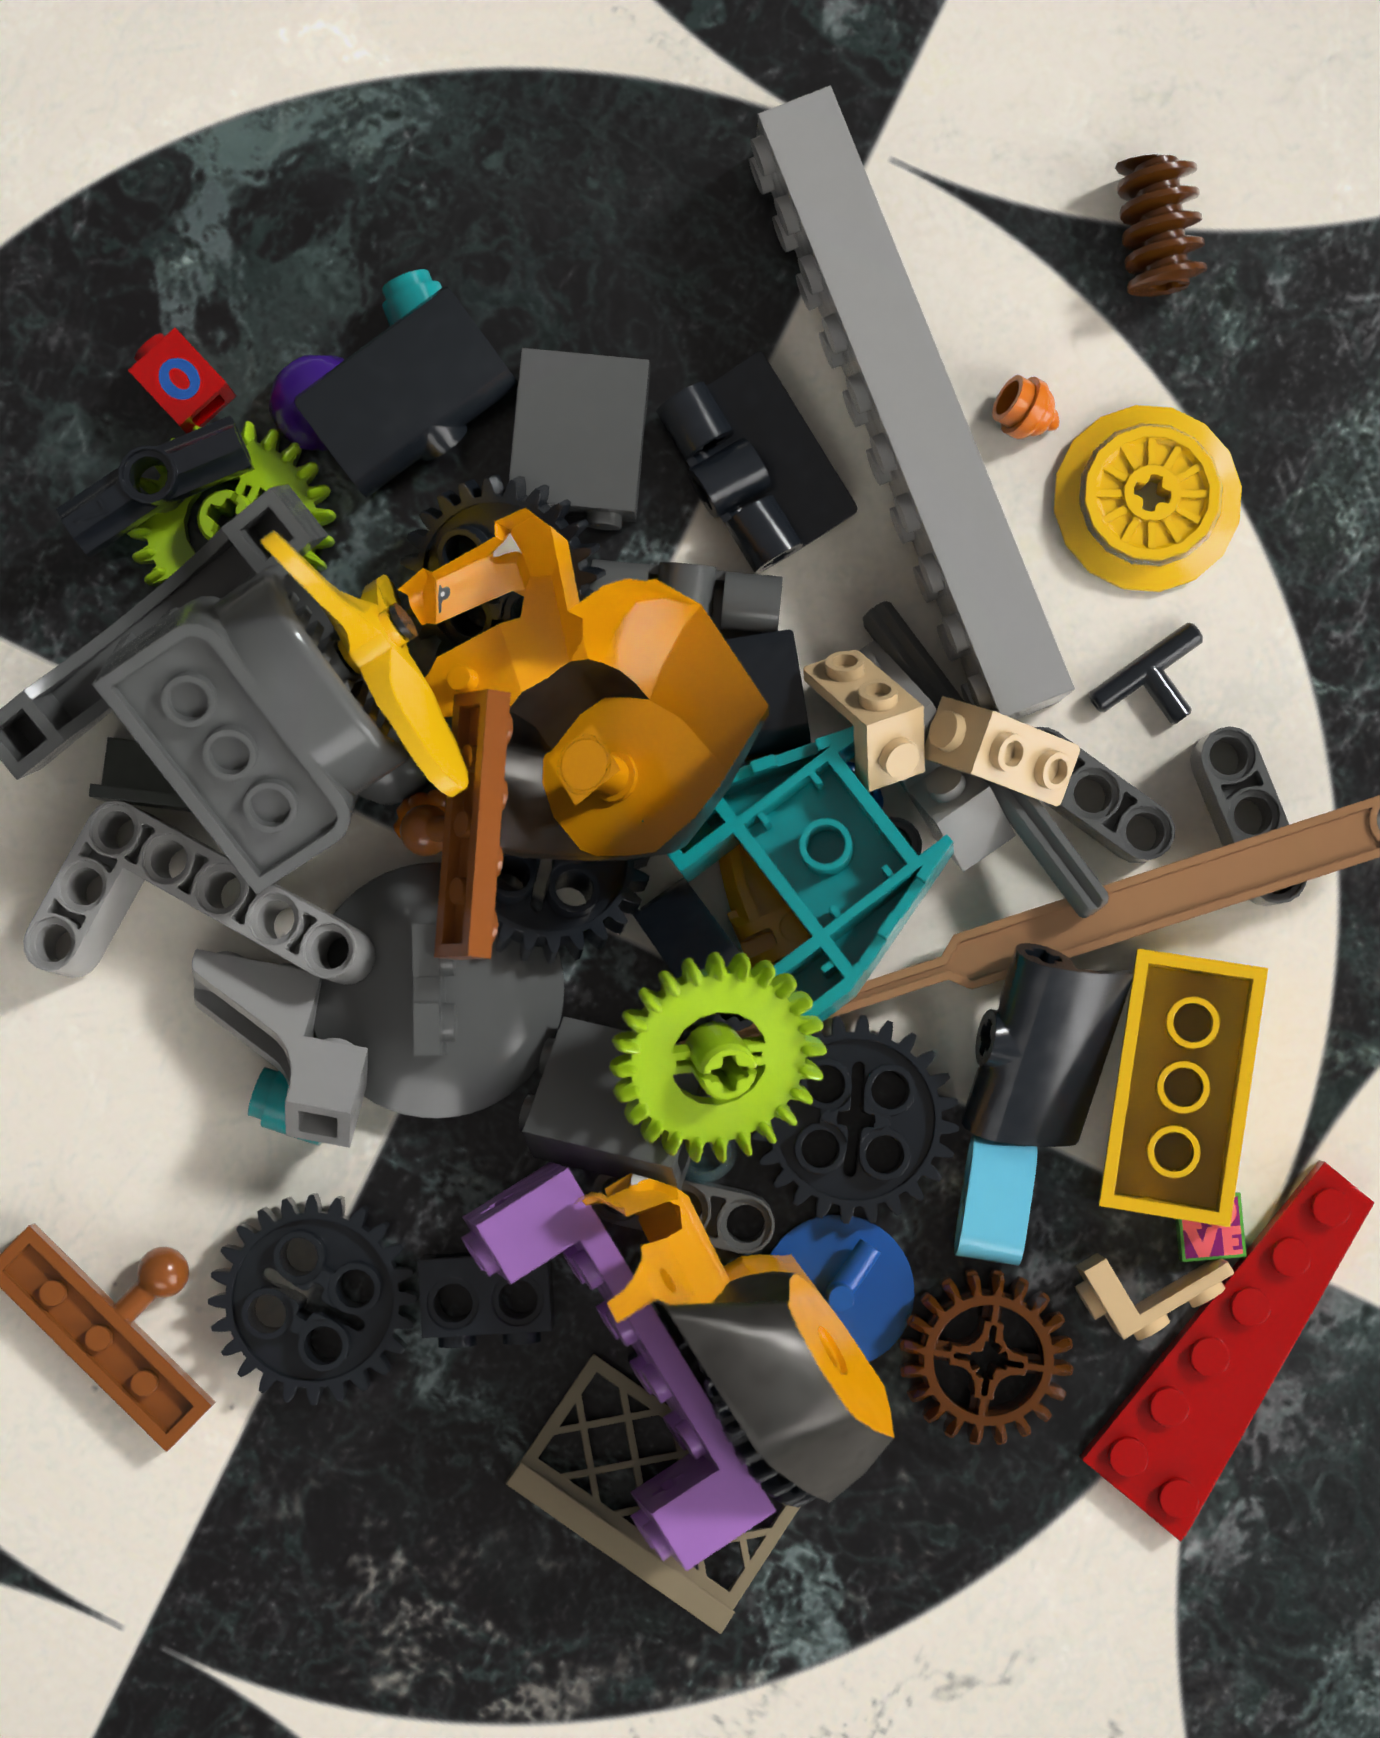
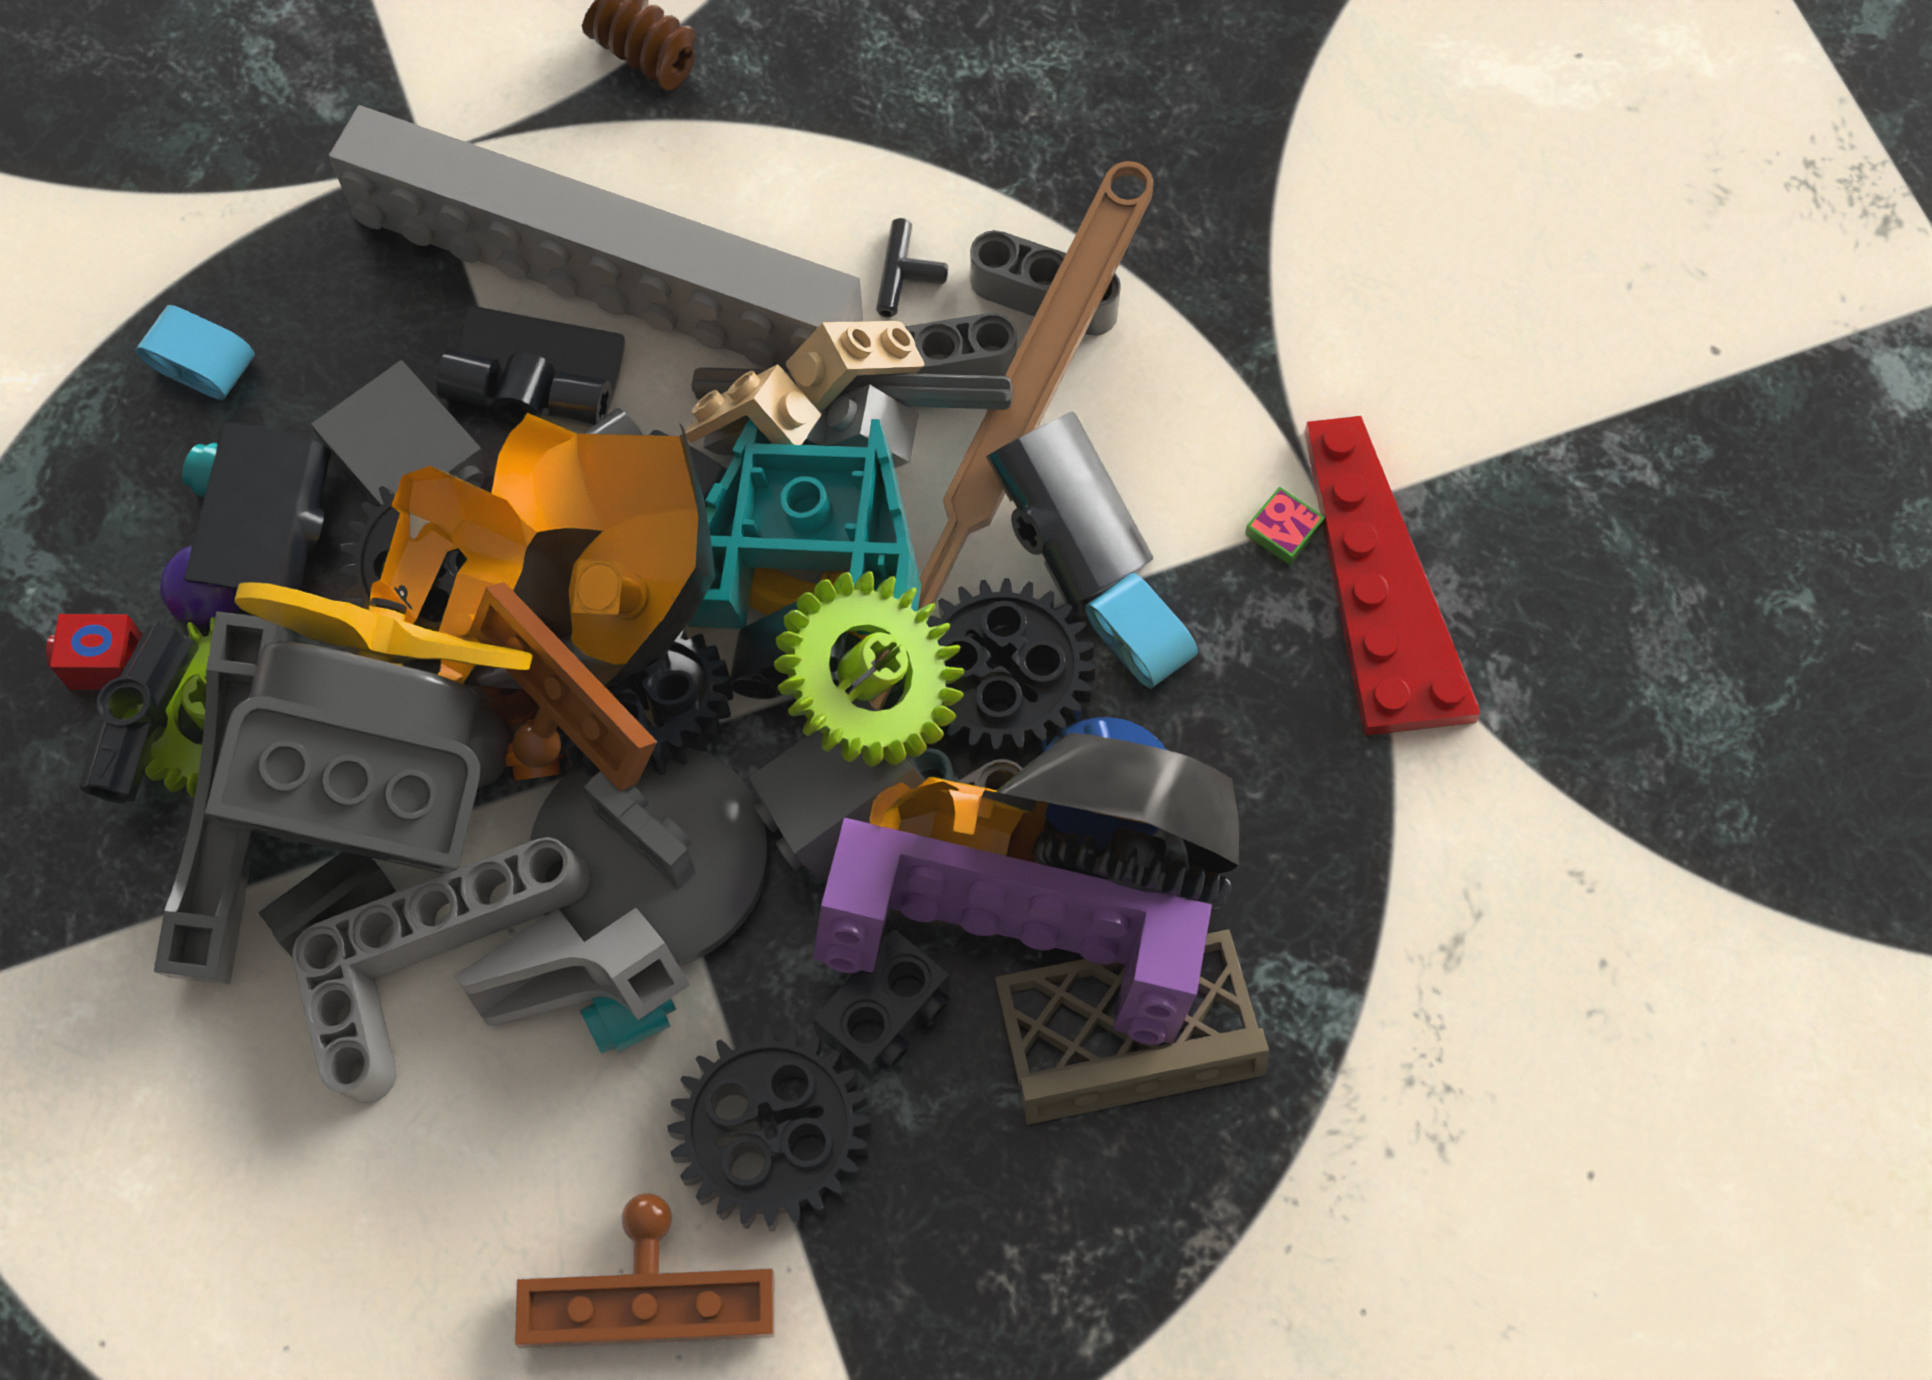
camera: 50 degrees left, 20 degrees down
(501, 168) = (195, 352): none -> medium azure beam
(982, 1388) = (1270, 691): reddish brown gear -> none
(1025, 408) = (669, 192): orange plate -> none
(1106, 520) = (787, 212): yellow piece -> none
(1106, 1296) = (1281, 616): tan bracket -> none
(1183, 1087) = (1178, 454): yellow brick -> none

